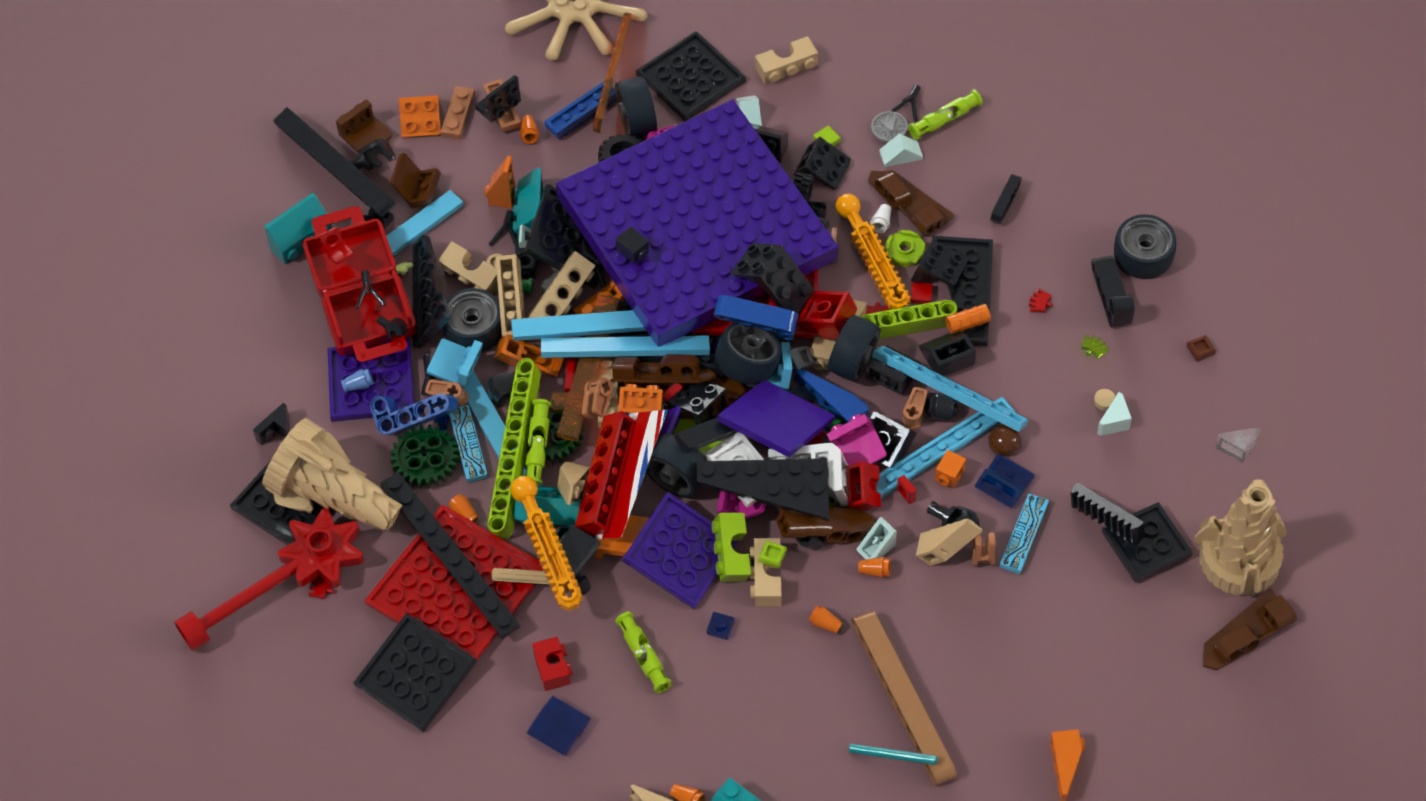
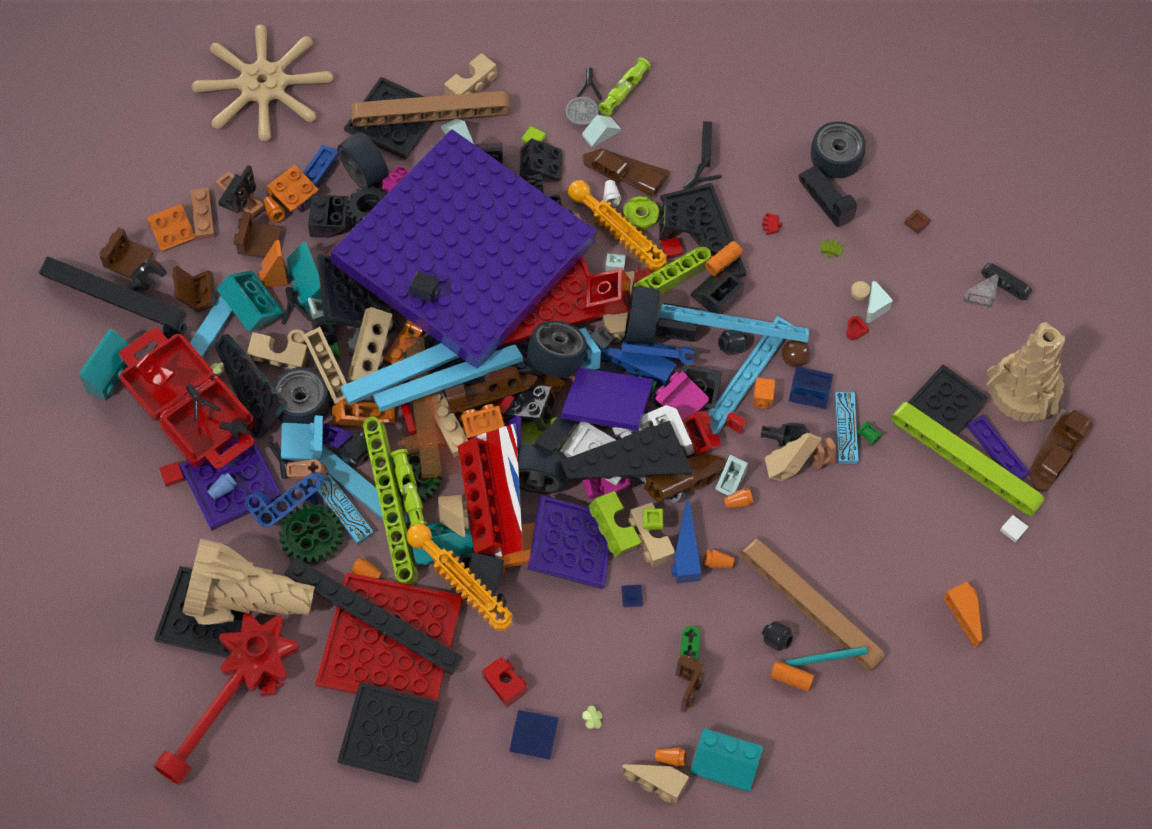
camera: 25 degrees left, 5 degrees up
(276, 422) = (163, 549): black slope -> none
(316, 354) = (171, 474): none -> red tile
(465, 210) = (249, 300): none -> teal slope
(488, 367) = (334, 436): none -> dark purple slope
(494, 149) = (255, 238): none -> reddish brown bracket
(519, 575) = (445, 613): tan axle -> none
(554, 114) = (292, 188): none -> orange bracket
(577, 150) = (327, 215): none -> black slope
(595, 398) = (444, 432): nougat piece -> none
(612, 72) = (327, 136): clear orange tile -> none
(625, 731) = (593, 718): none -> yellowish green plant
(642, 649) = (571, 637): lime piece -> none
(731, 76) = (430, 108): none -> medium nougat beam
(742, 730) = (690, 670): none -> reddish brown bracket
(753, 692) = (695, 643): none -> green beam
(757, 315) = (575, 313): blue beam -> none
(776, 274) = (556, 271): black bracket -> none
(794, 601) = (686, 561): none -> blue slope
(849, 761) = (791, 676): none -> orange axle
(852, 716) = (777, 636): none -> black head
(855, 288) = (615, 261): none -> light aqua slope
(878, 399) = (660, 350): none -> blue tile
(914, 409) = (711, 350): nougat piece -> none
(978, 231) = (698, 171): none -> black plant
(1045, 546) = (869, 433): none -> green bush
(1082, 436) = (856, 328): none -> red tile
(1107, 513) = (909, 387): black gear -> none
(1141, 608) = (967, 458): none -> lime beam
(1159, 696) = (1014, 528): none -> white tile
(1180, 610) = (997, 447): none -> dark purple tile
(1271, 440) = (1007, 281): none -> black beam

